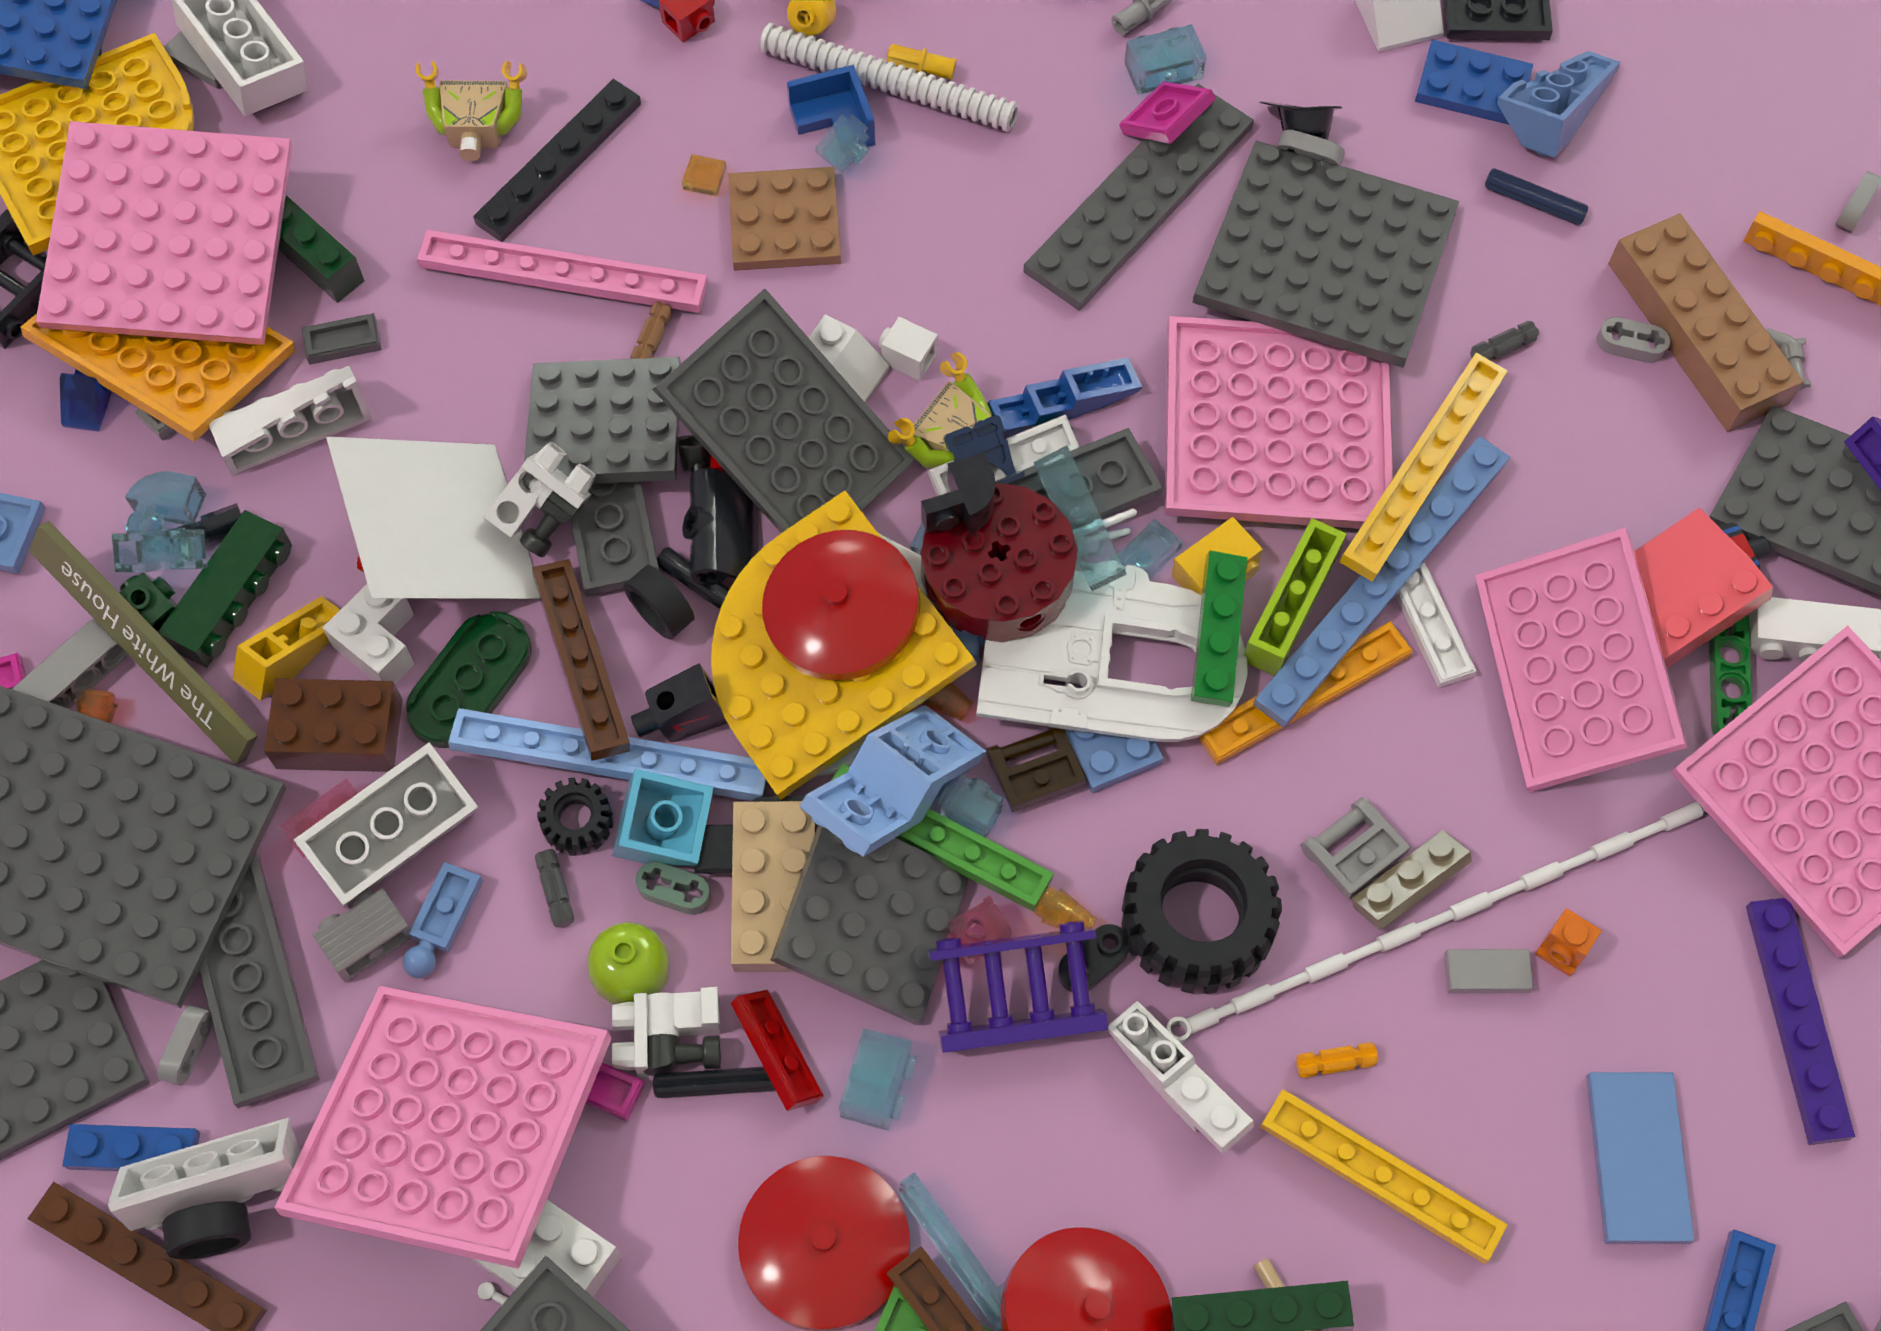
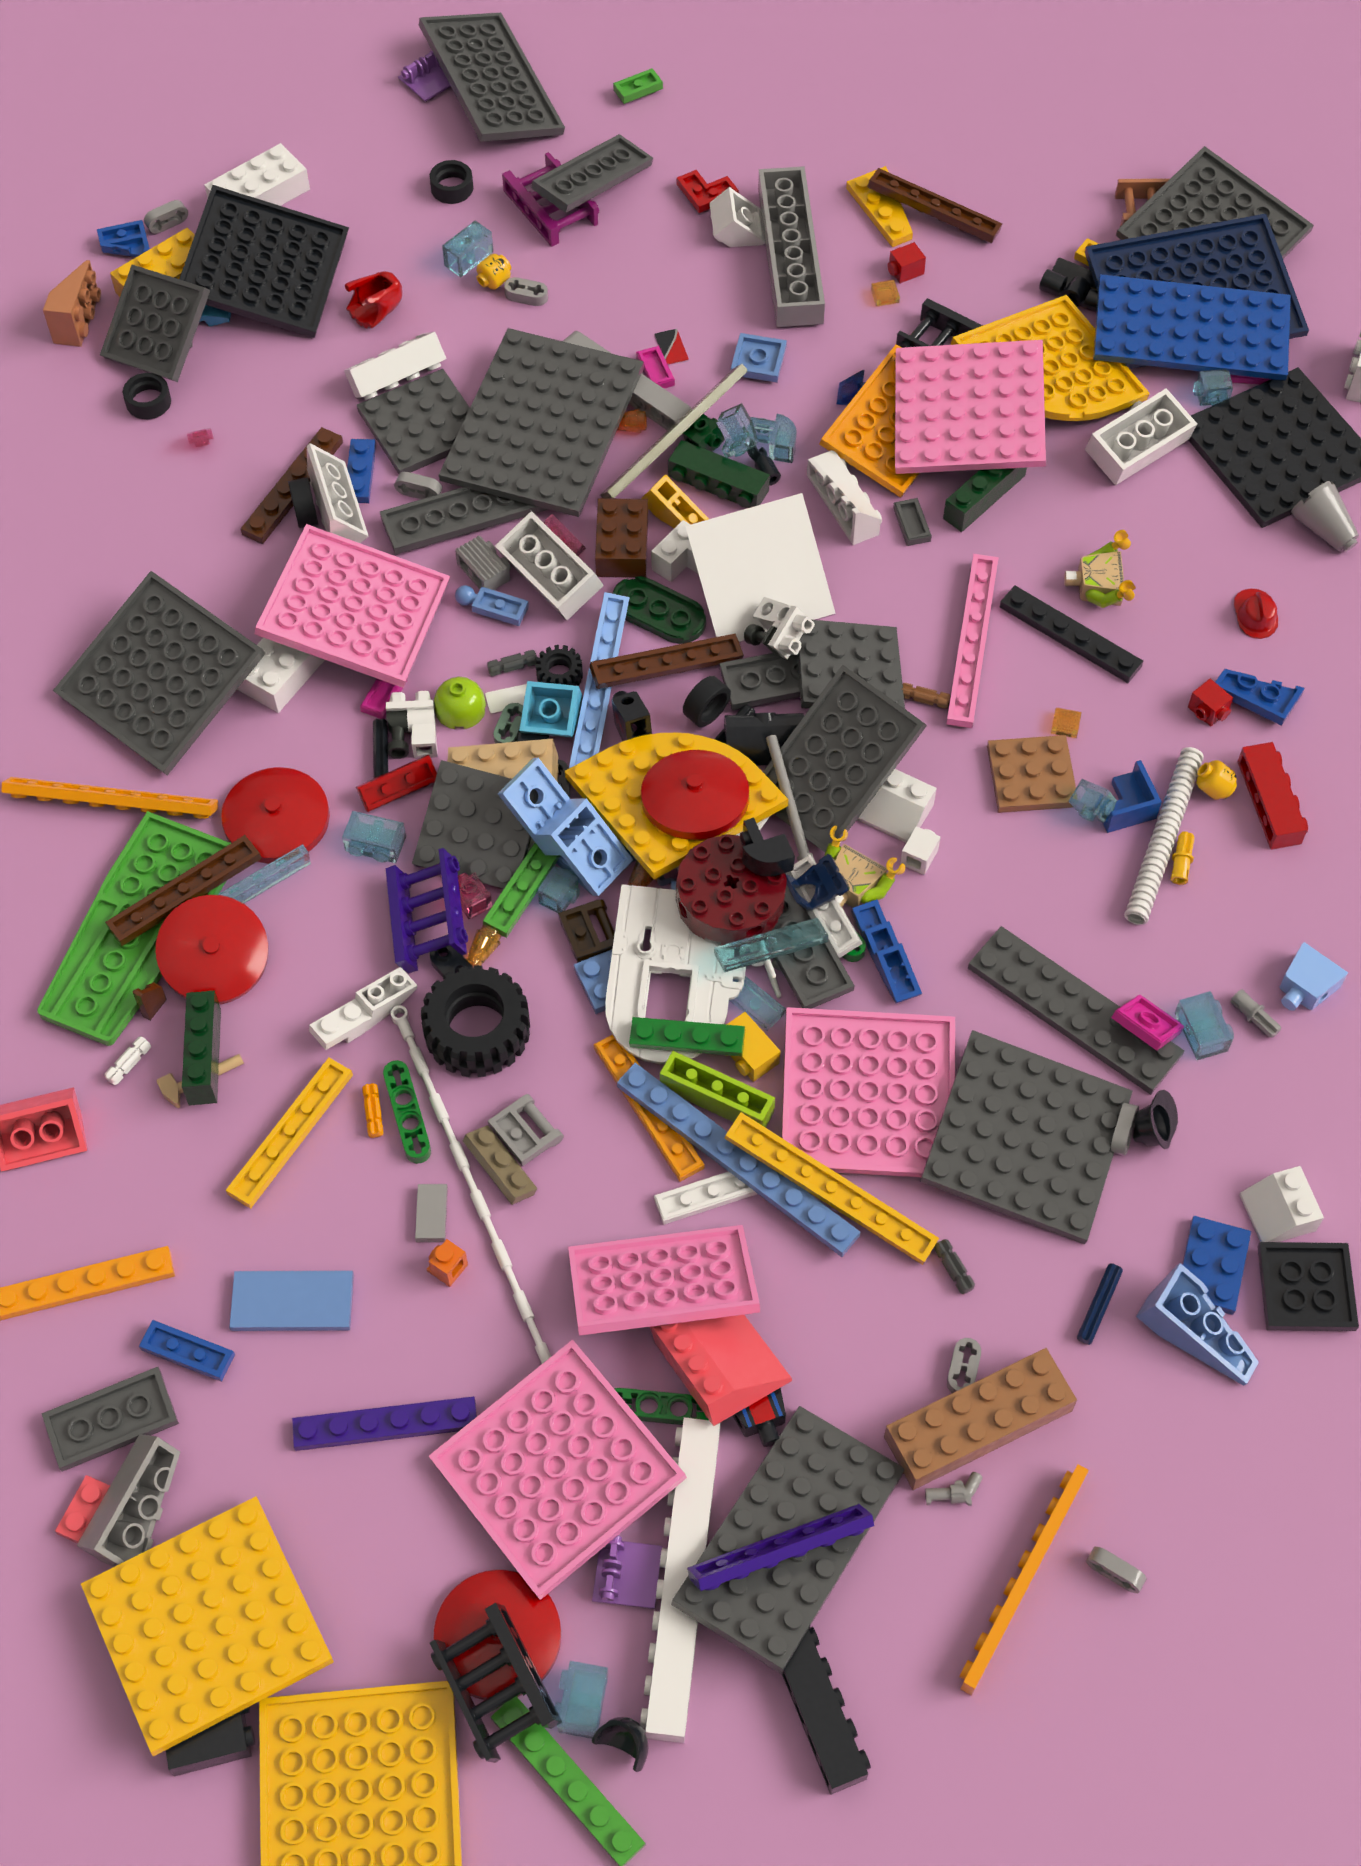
camera: 90 degrees right, 5 degrees down
(616, 892) = (500, 698): none -> white sticker
(919, 488) = (785, 788): none -> light grey bar
(1337, 1017) = (407, 1111): none -> green beam

